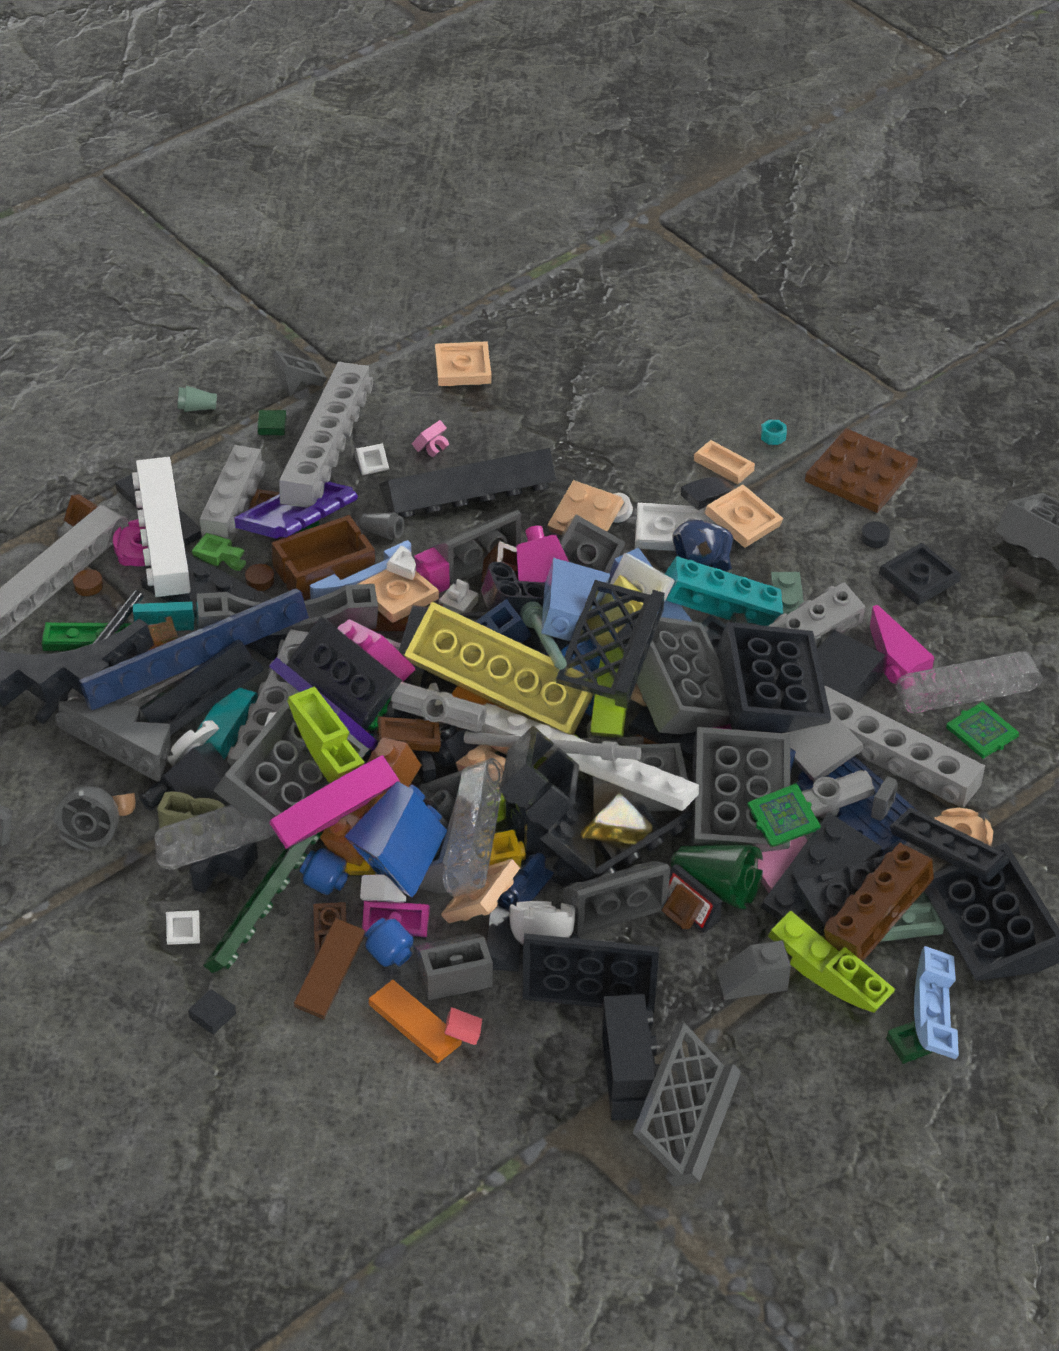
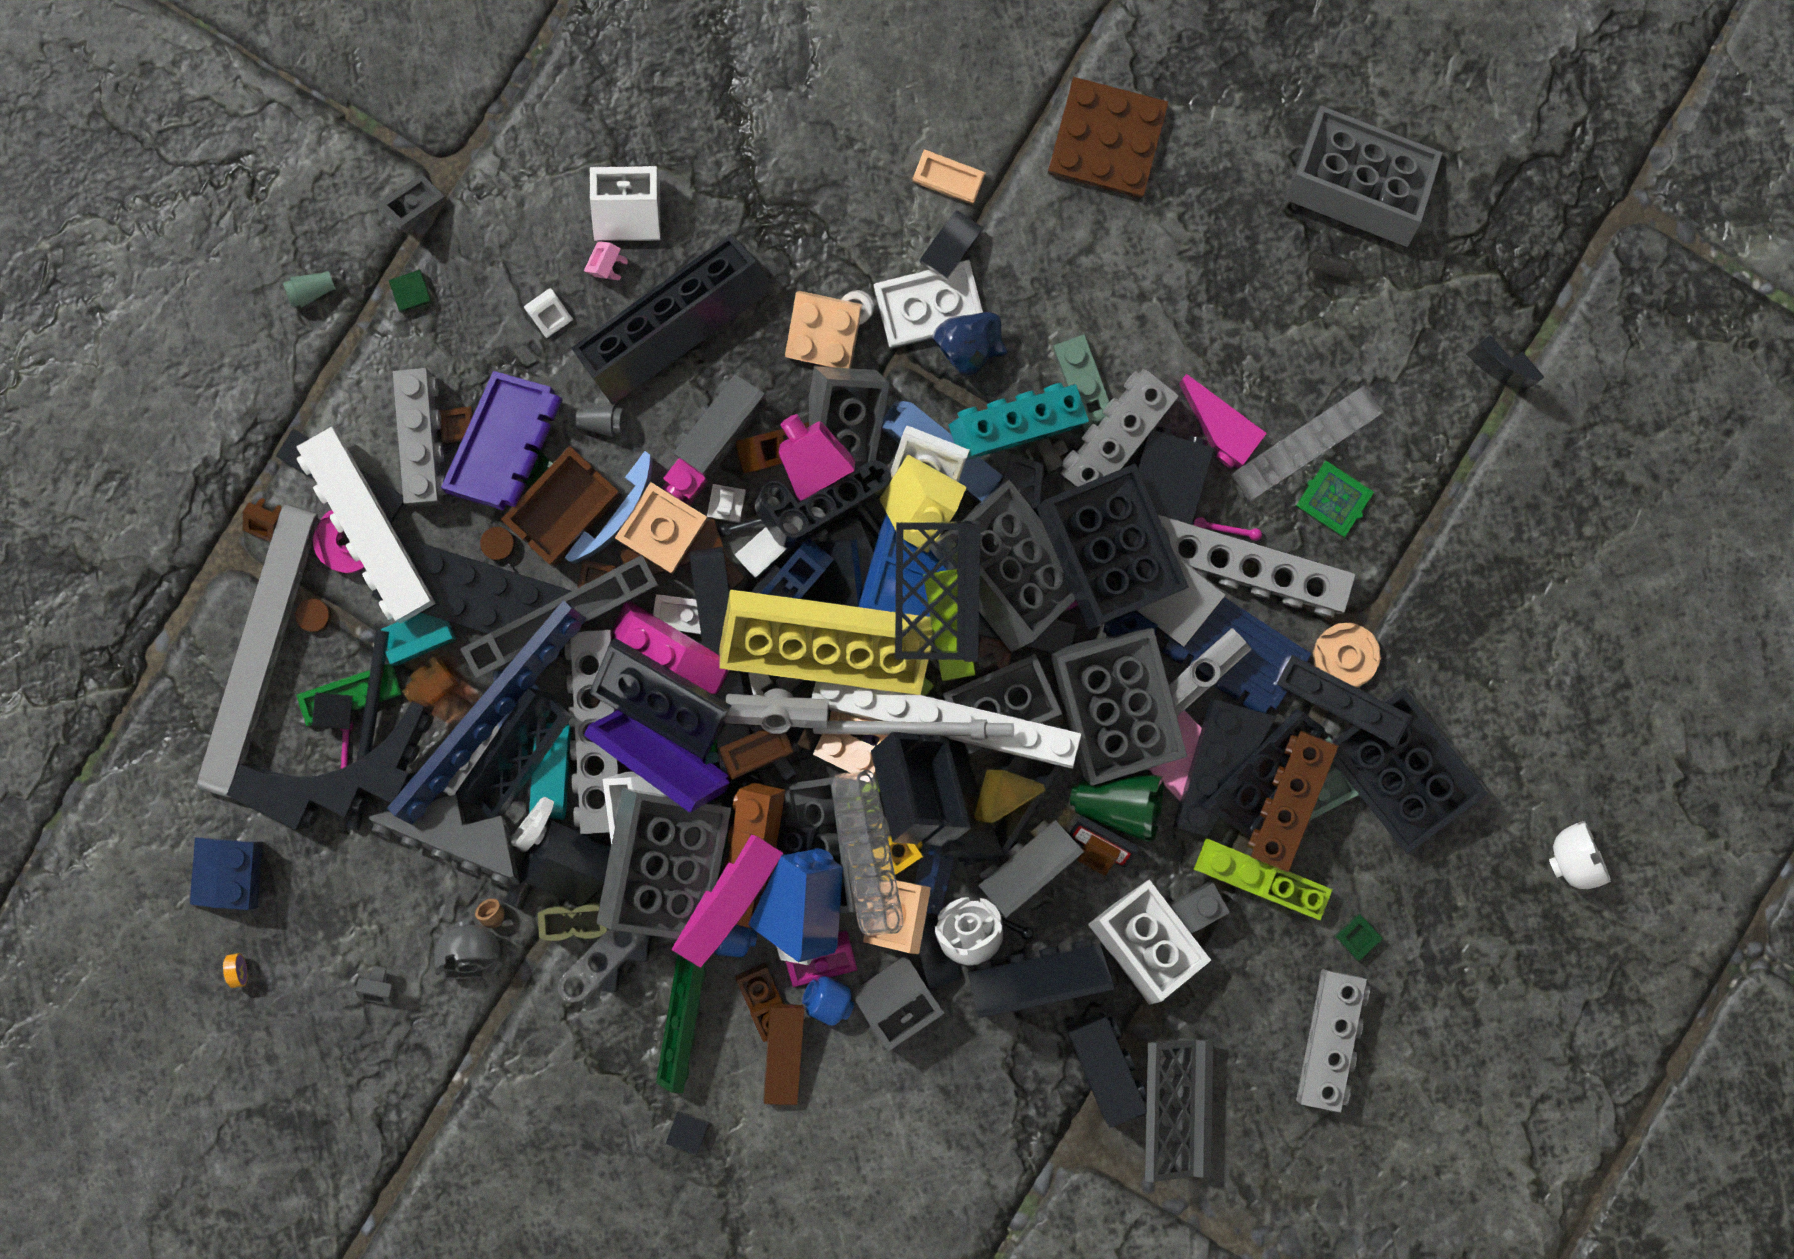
camera: 20 degrees left, 40 degrees up
(67, 632) = (332, 710): none -> black slope
(183, 927) = (616, 1042): white slope -> none
(216, 549) = (434, 524): bright green plate -> none
(324, 734) = (689, 834): lime slope -> none
(325, 435) = (470, 198): light grey brick -> none
(402, 563) = (655, 493): white tile -> none
(414, 1021) = (884, 1077): orange tile -> none
(463, 363) = (594, 116): light nougat plate -> none
(463, 1026) = (934, 1074): coral tile -> none
(464, 406) = (625, 203): none -> white slope
(532, 617) = (829, 539): sand green piece -> none
(566, 596) = (866, 522): medium blue slope -> none
(705, 977) = (1149, 942): none -> white slope
(743, 515) = (1000, 272): light nougat plate -> none
(773, 432) = (992, 111): teal tile -> none
(783, 815) = (1172, 728): green piece -> none
(857, 1110) = (1332, 1040): none -> light grey brick
(875, 534) = (1150, 240): black tile -> none
(884, 798) = (1263, 653): dark grey tile -> none
(920, 573) = (1215, 291): black plate -> none
(932, 1002) = (1373, 899): light blue slope -> none

